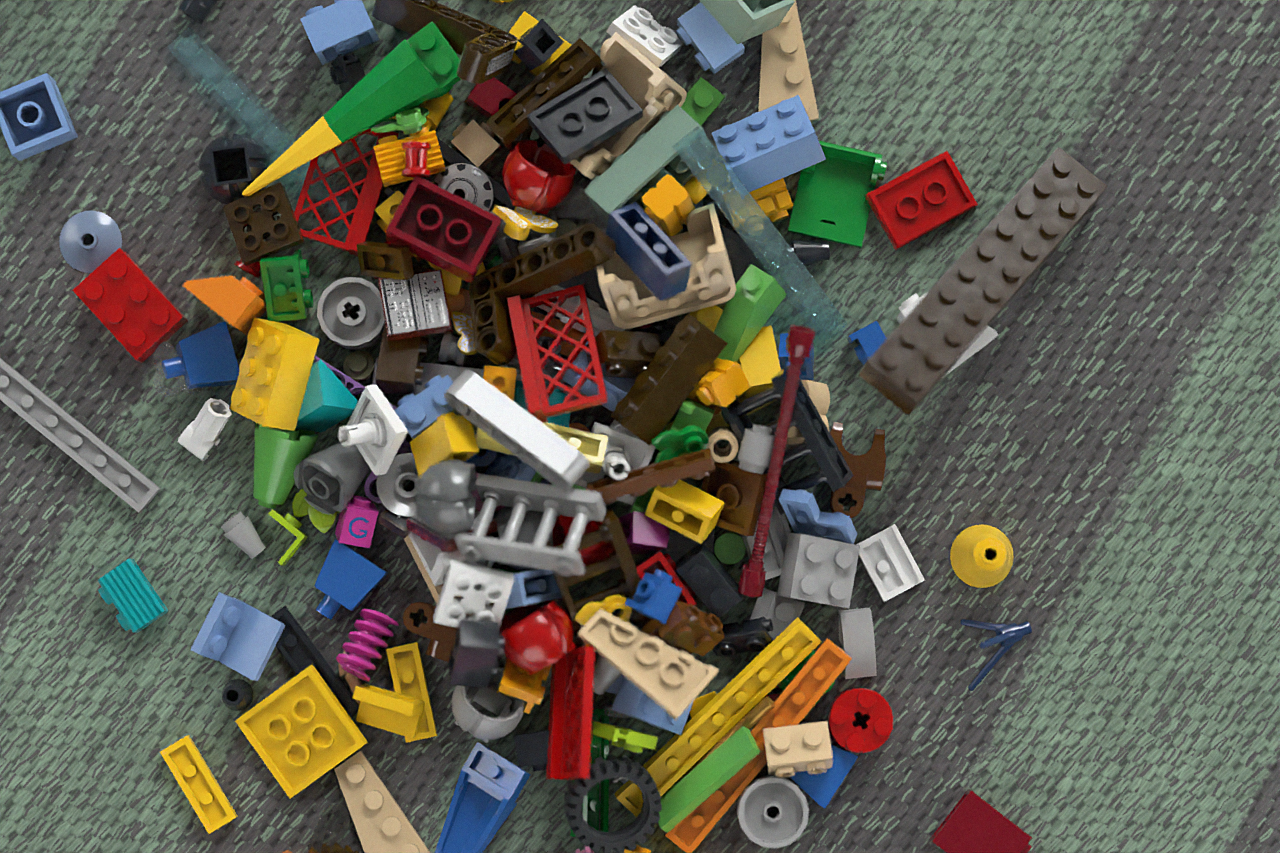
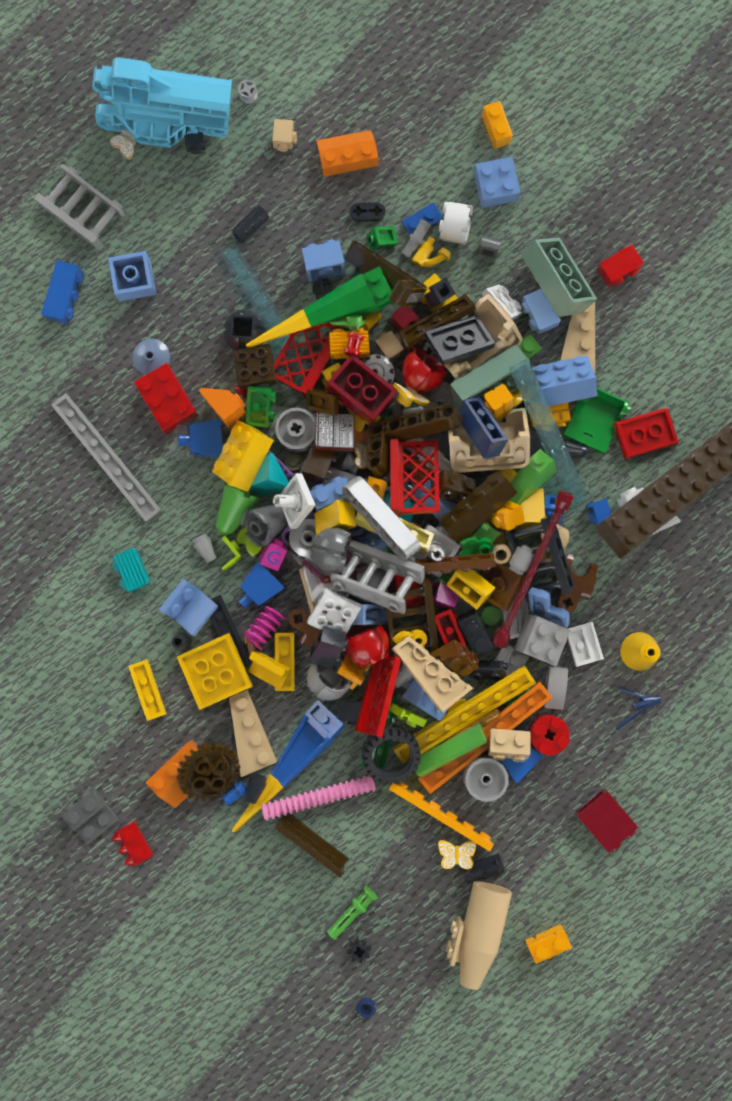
camera: 10 degrees right, 0 degrees up
(205, 429) = (195, 480): white piece -> none
(655, 596) = (443, 635): blue brick -> none

